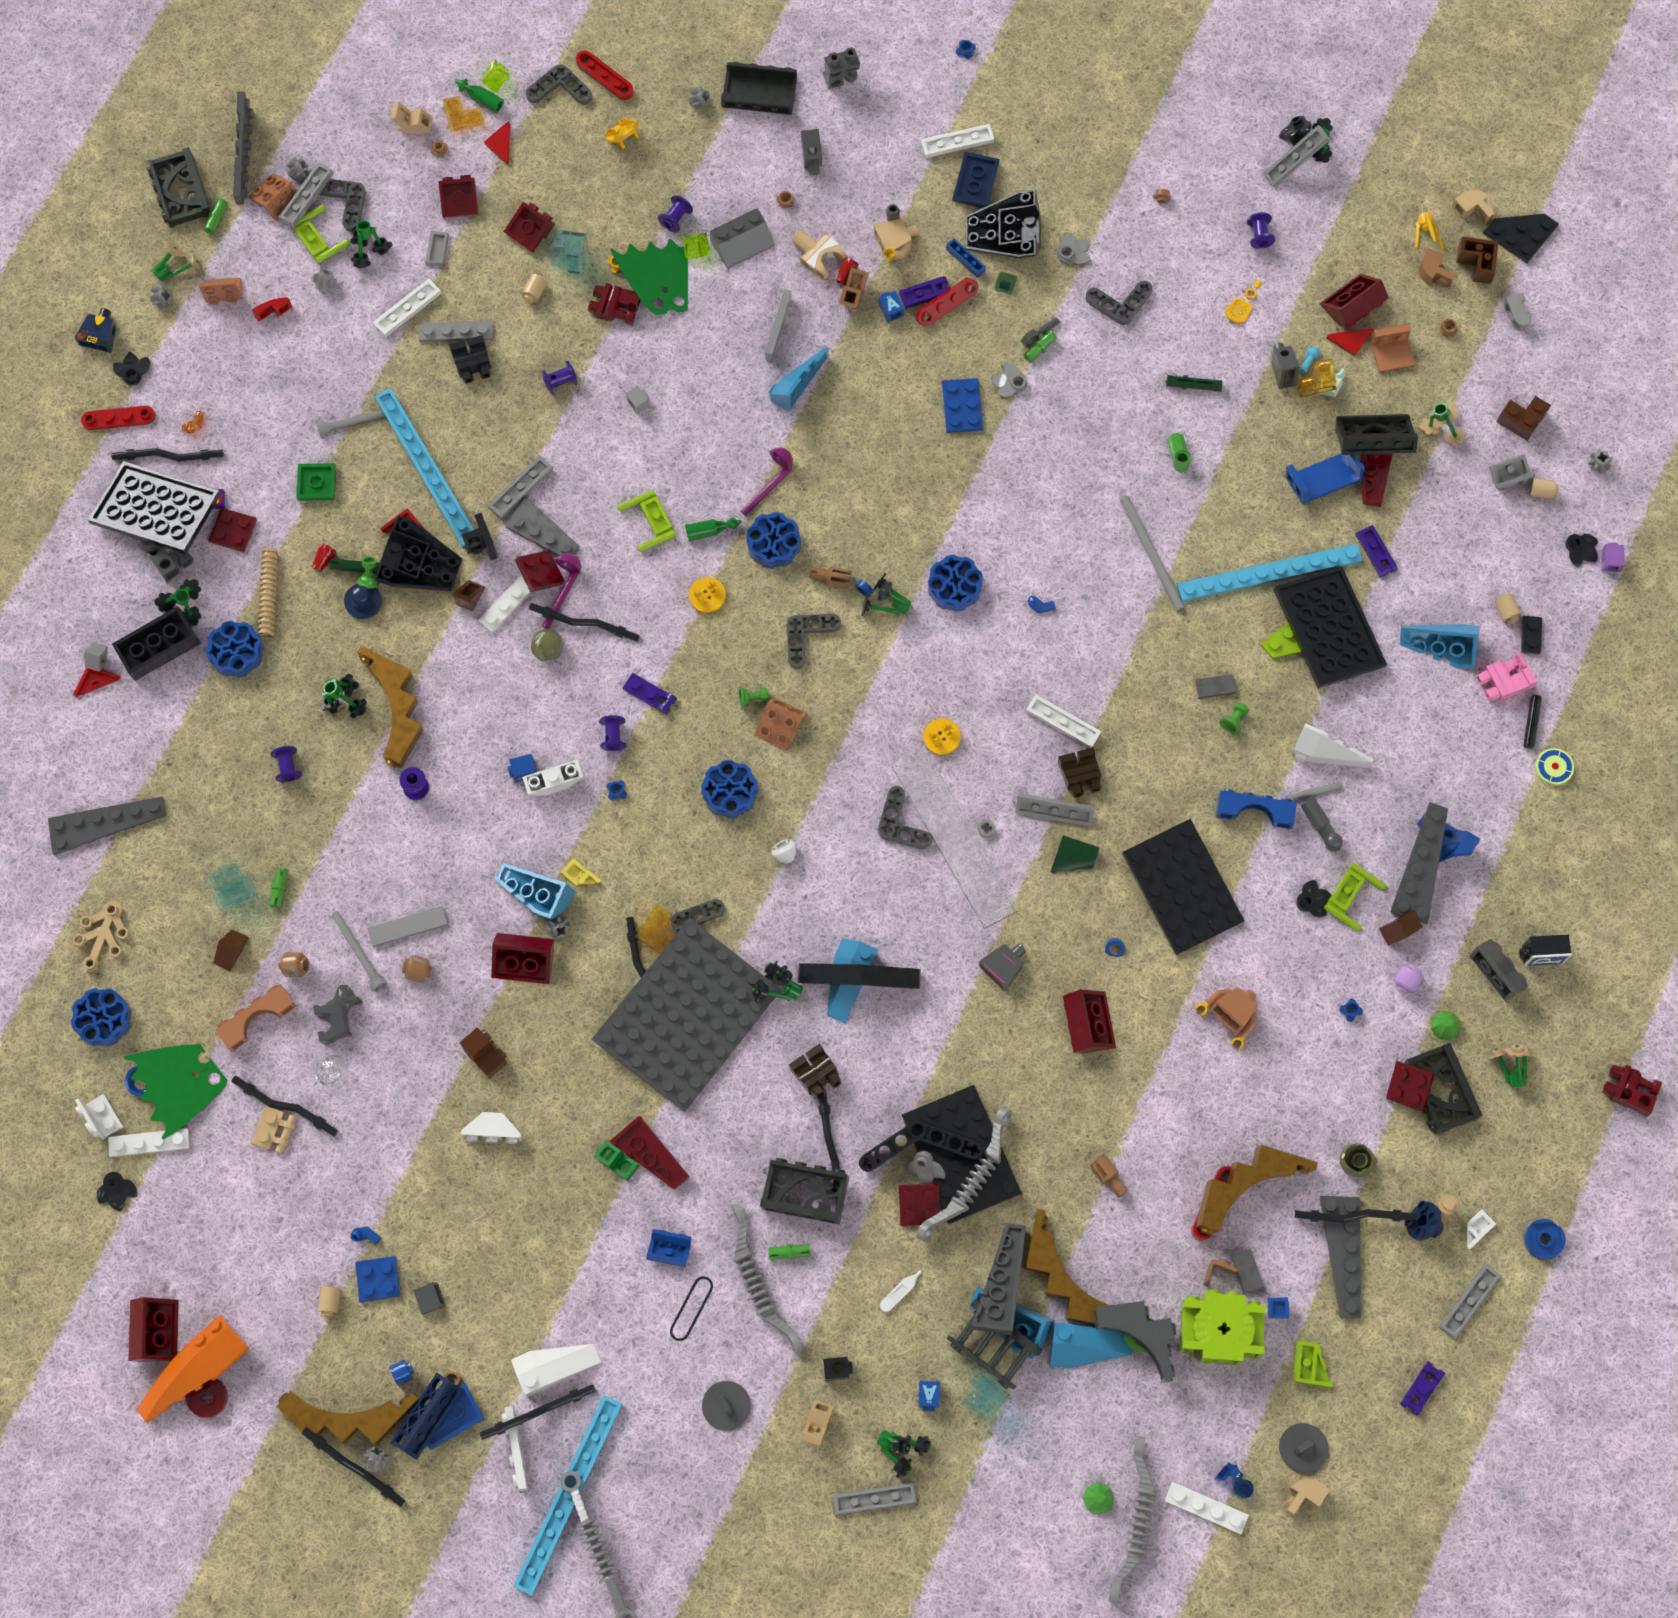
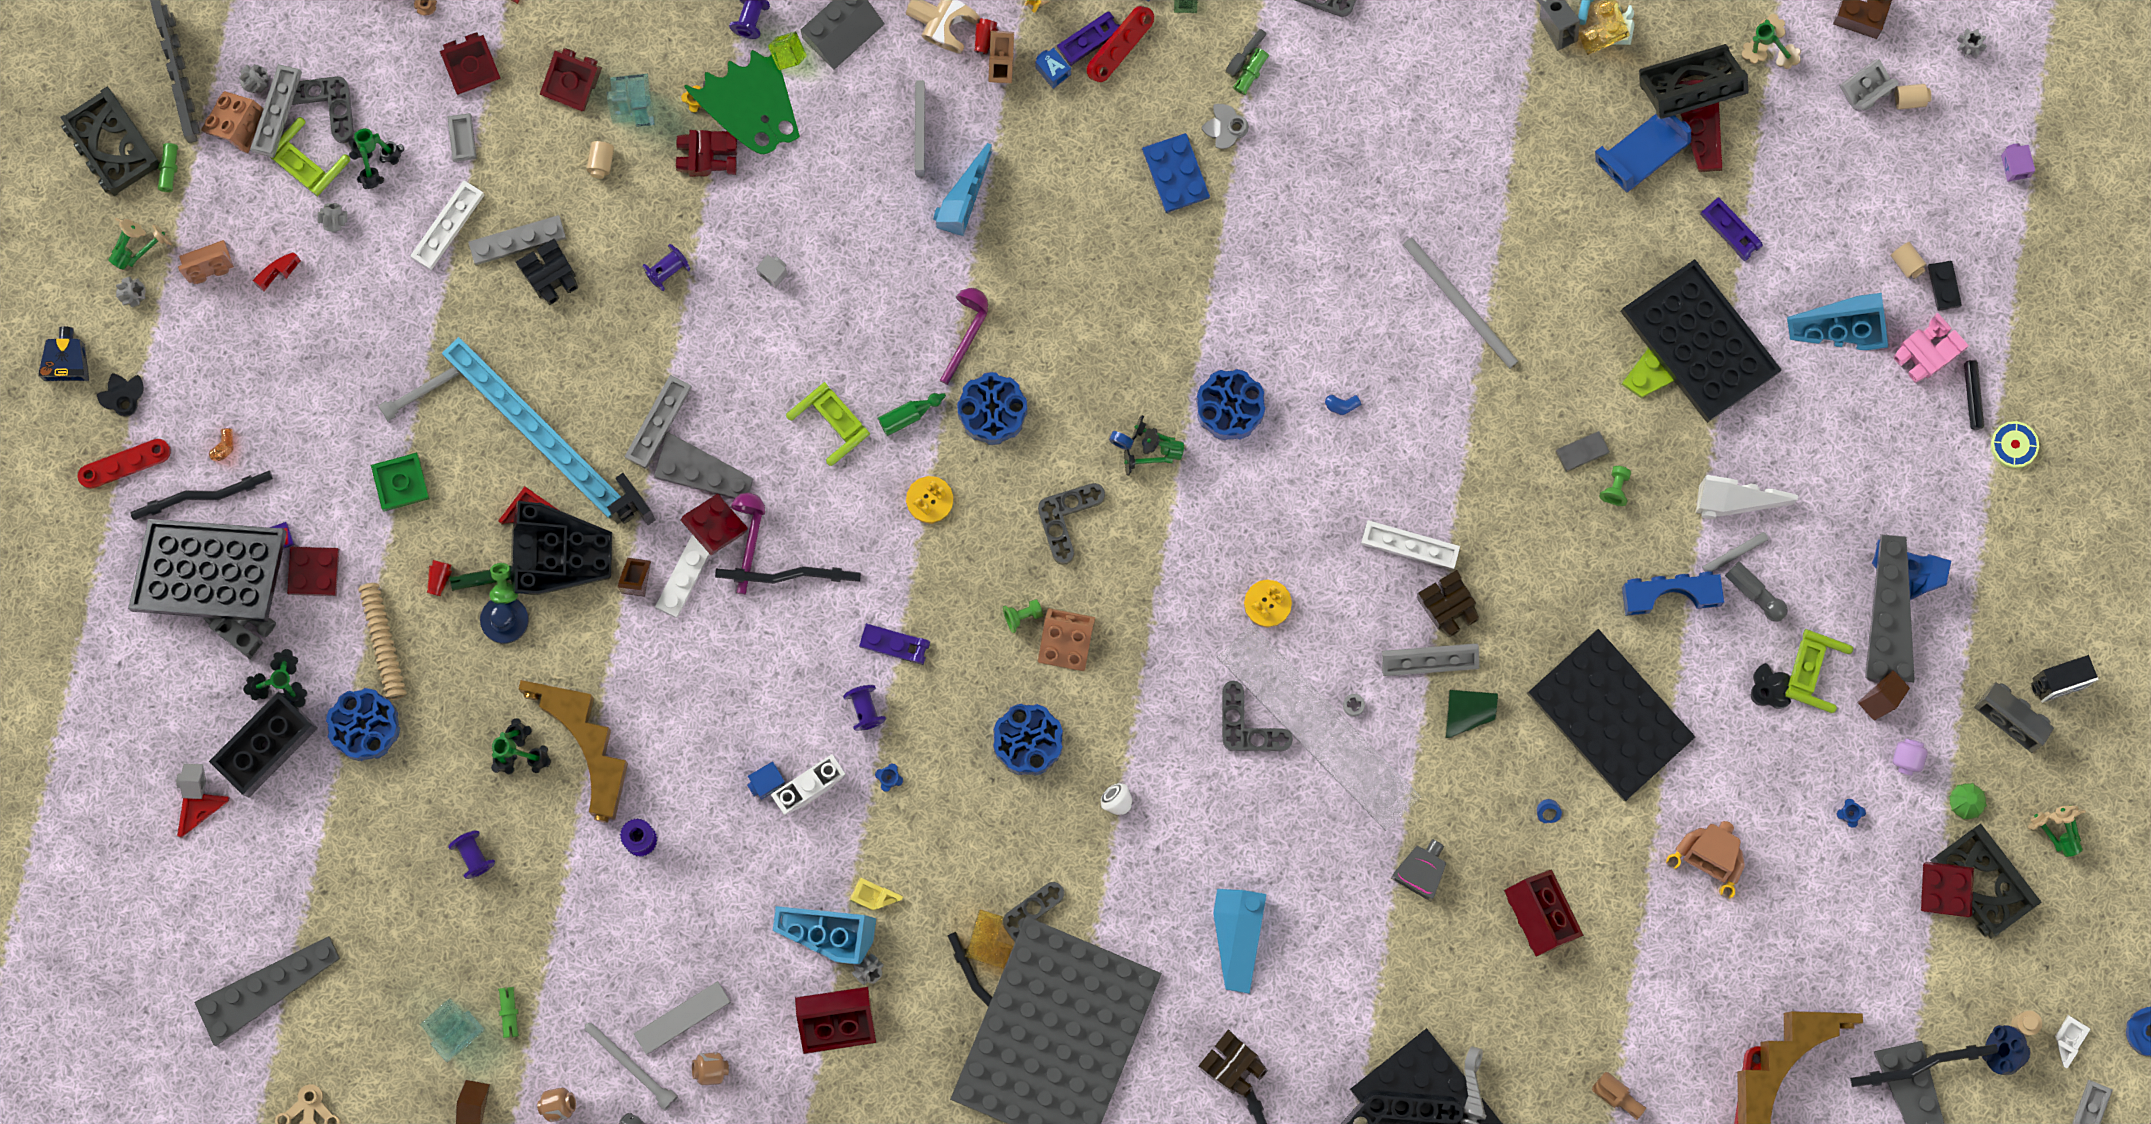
camera: 15 degrees left, 5 degrees up
(547, 645) = (751, 617): olive hair -> none
(782, 977) = (1162, 962): black plant -> none
(828, 575) = (1070, 435): medium nougat arm -> none
(859, 975) = (1251, 933): black beam -> none
(1179, 452) = (1458, 163): bright green piece -> none
(1193, 383) = (1443, 72): dark green pin -> none
(1269, 572) = (1608, 290): medium azure plate -> none
(1361, 1157) = (1913, 994): olive hair -> none
(1584, 550) = (1981, 160): black plate -> none

